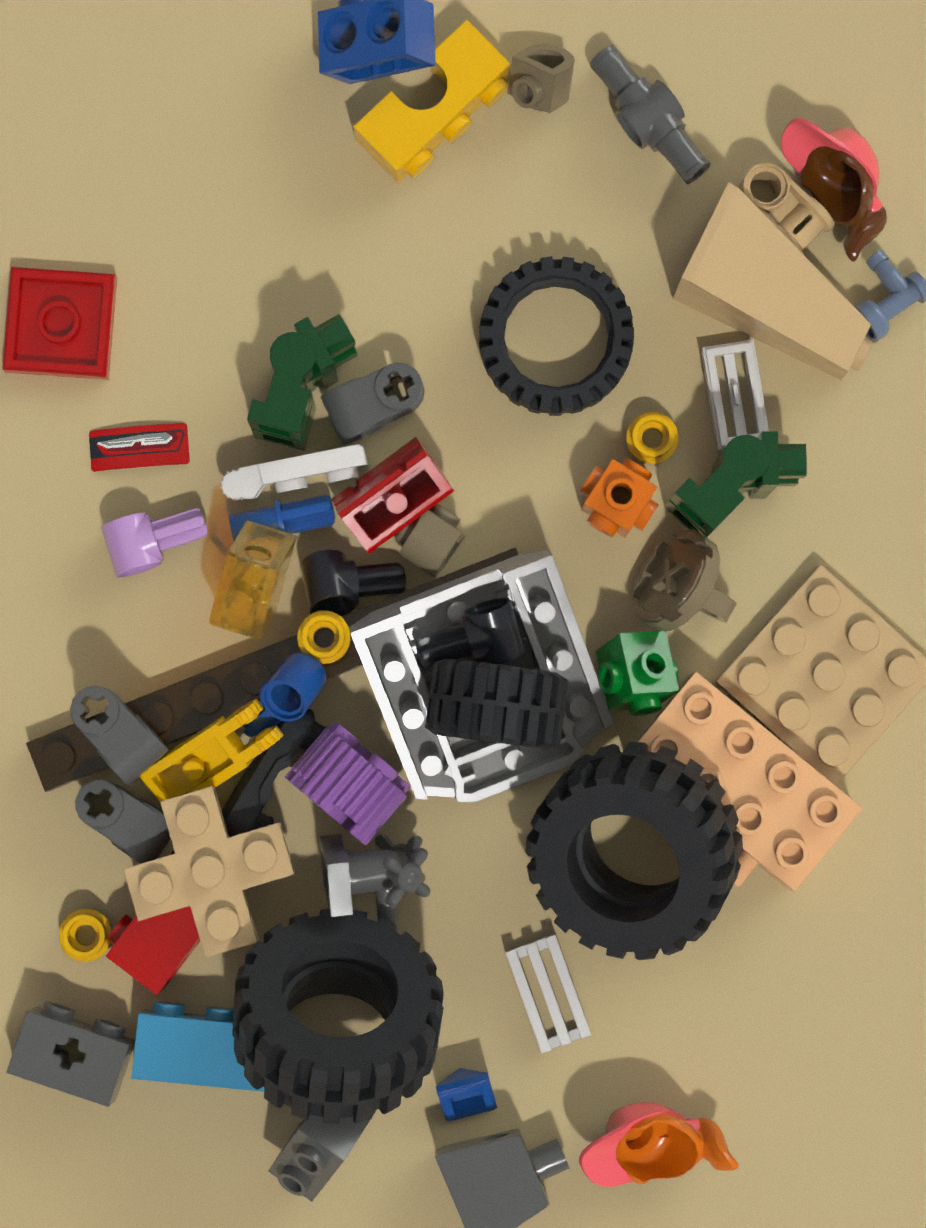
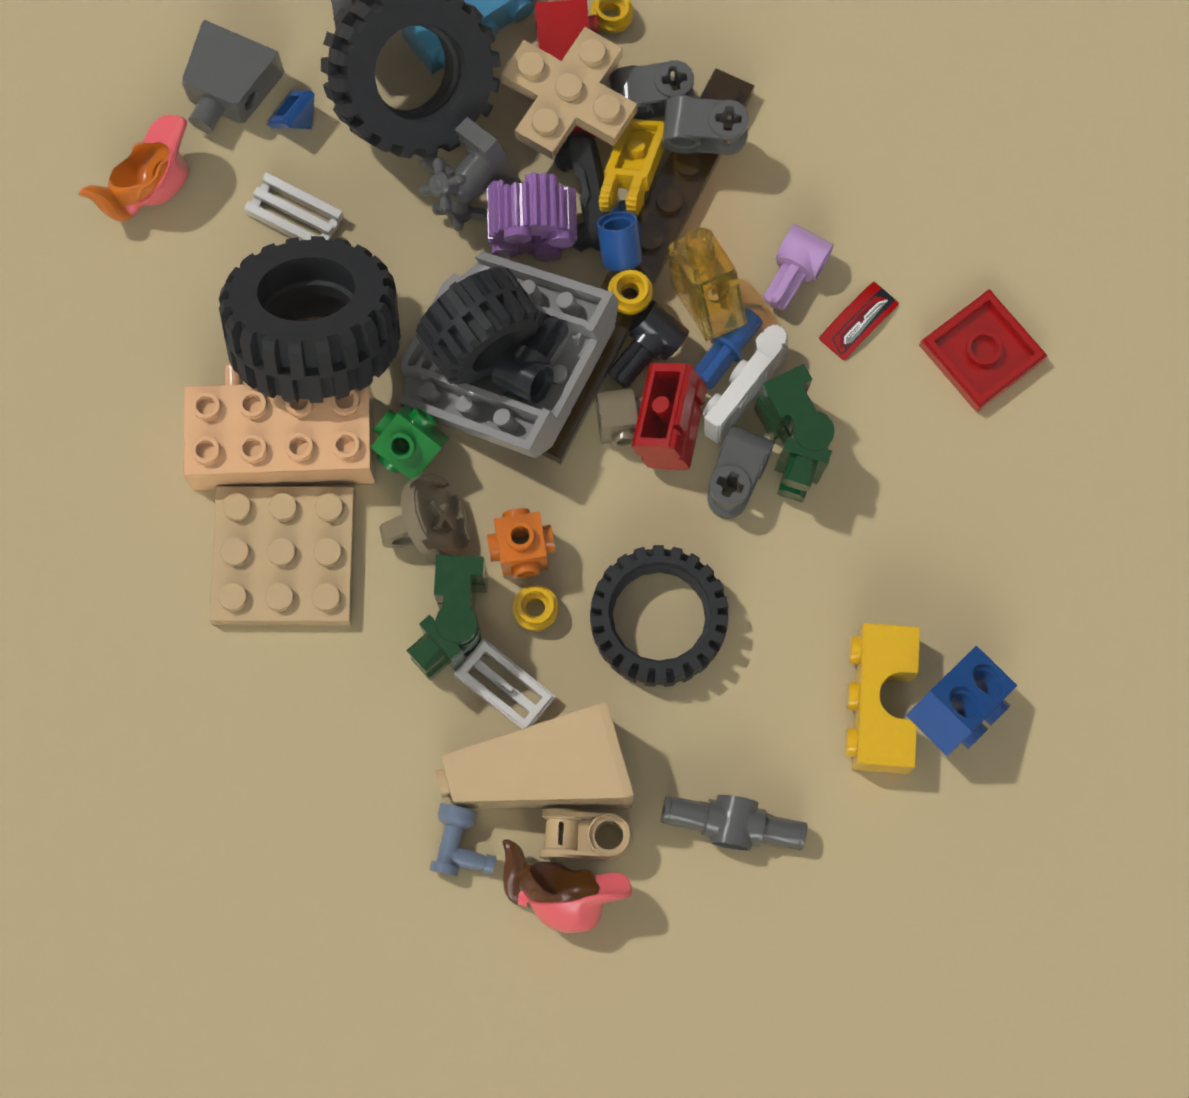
camera: 135 degrees right, 10 degrees down
(541, 77) = (828, 778): dark tan plate -> none

